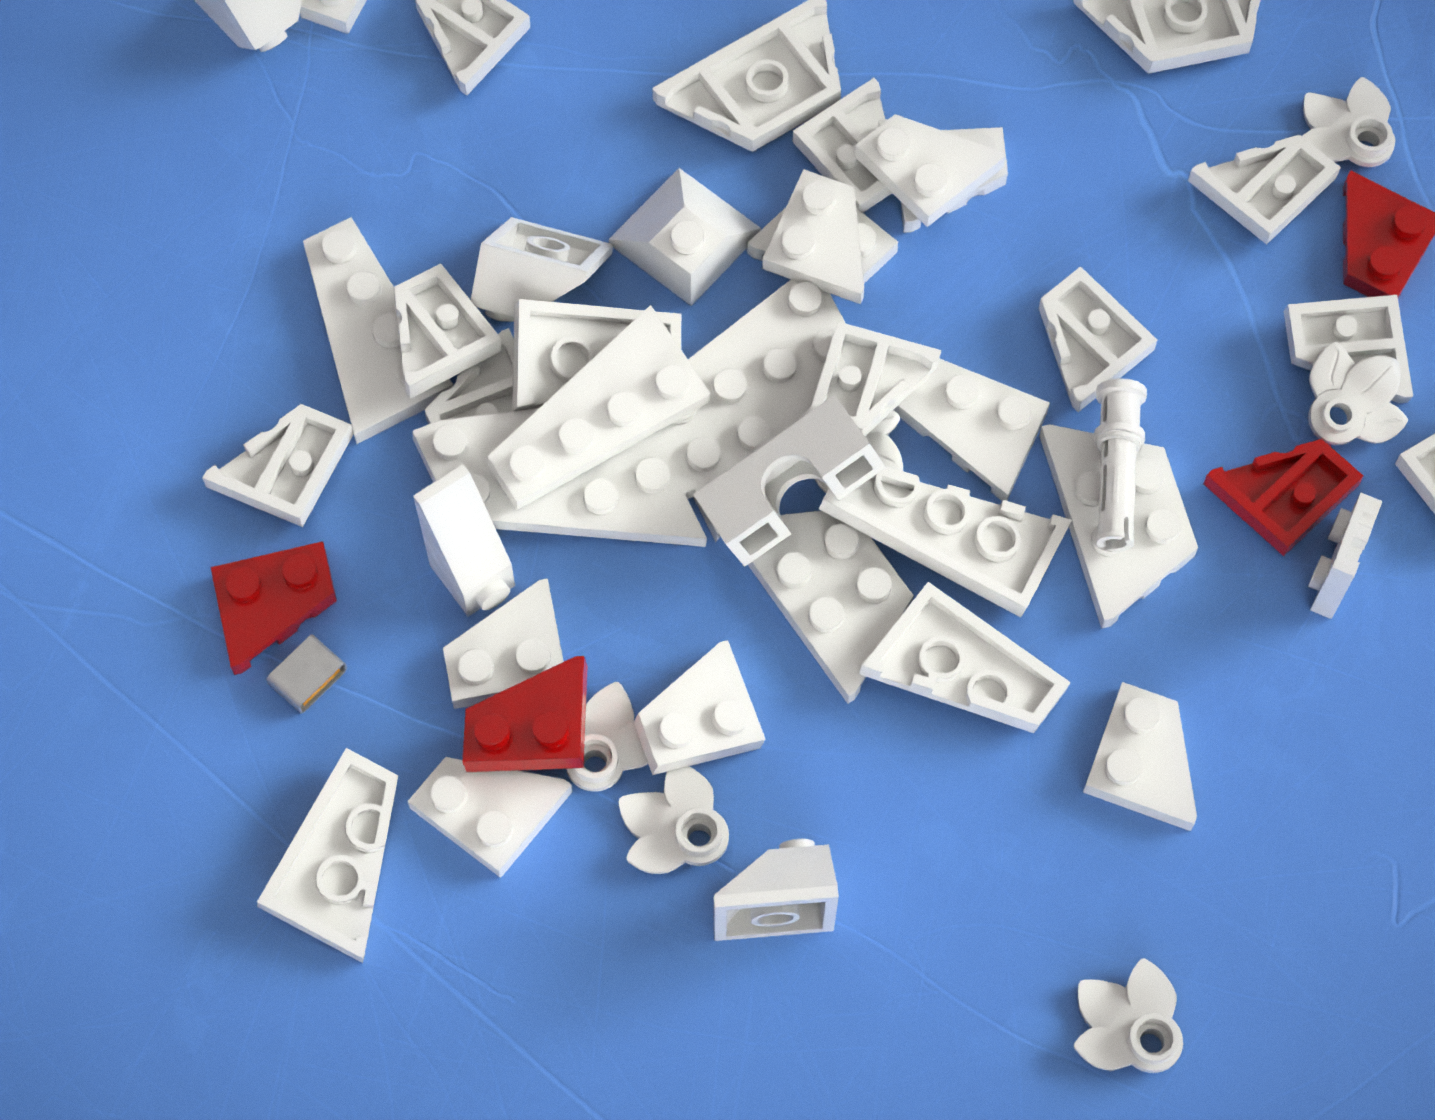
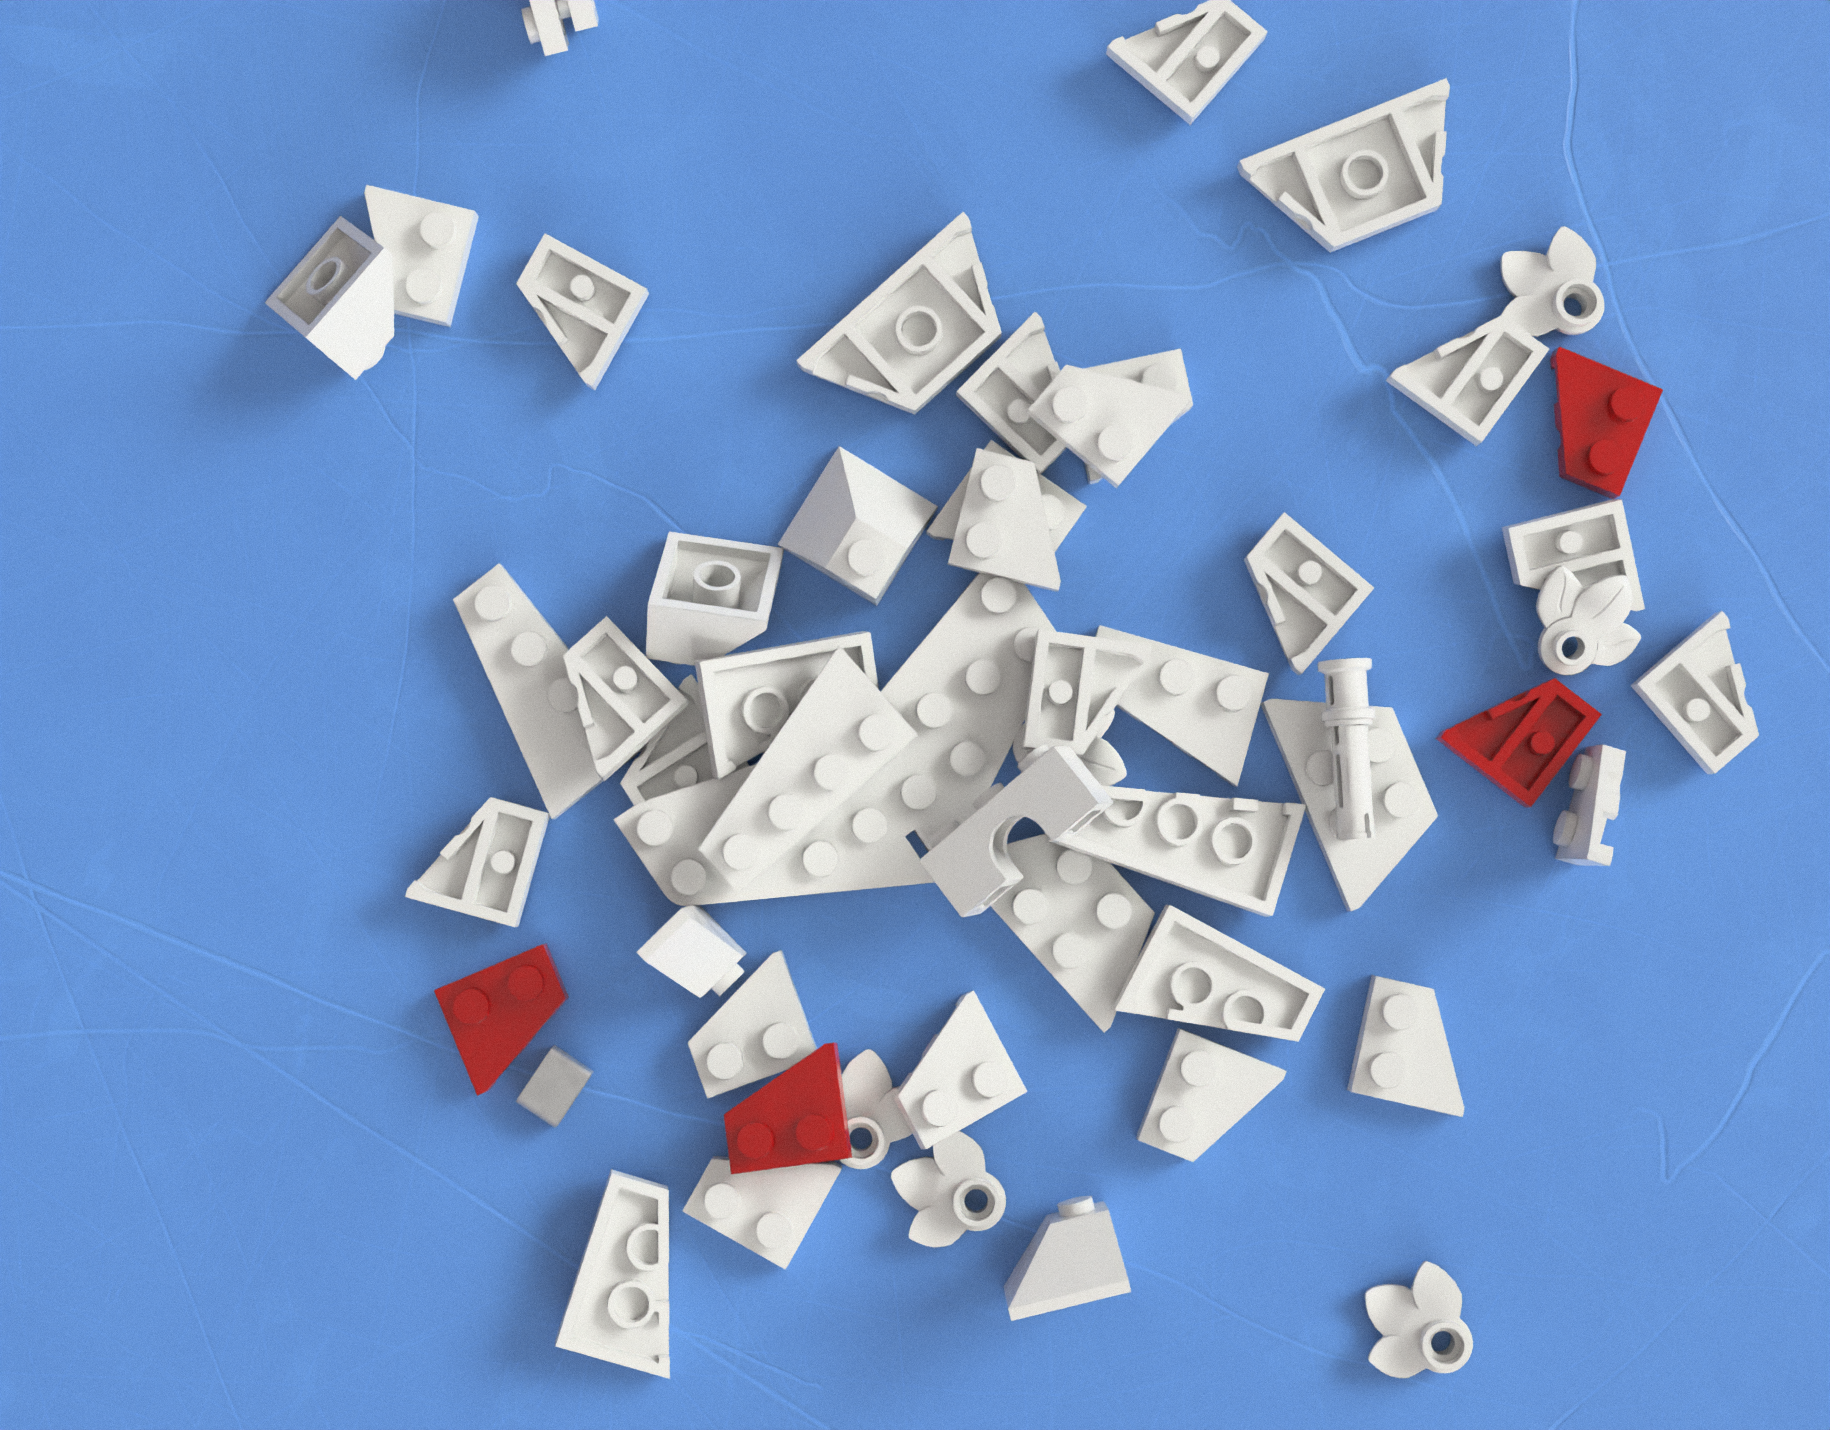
camera: 10 degrees left, 20 degrees up
(938, 770) = (1203, 1095): none -> white wing

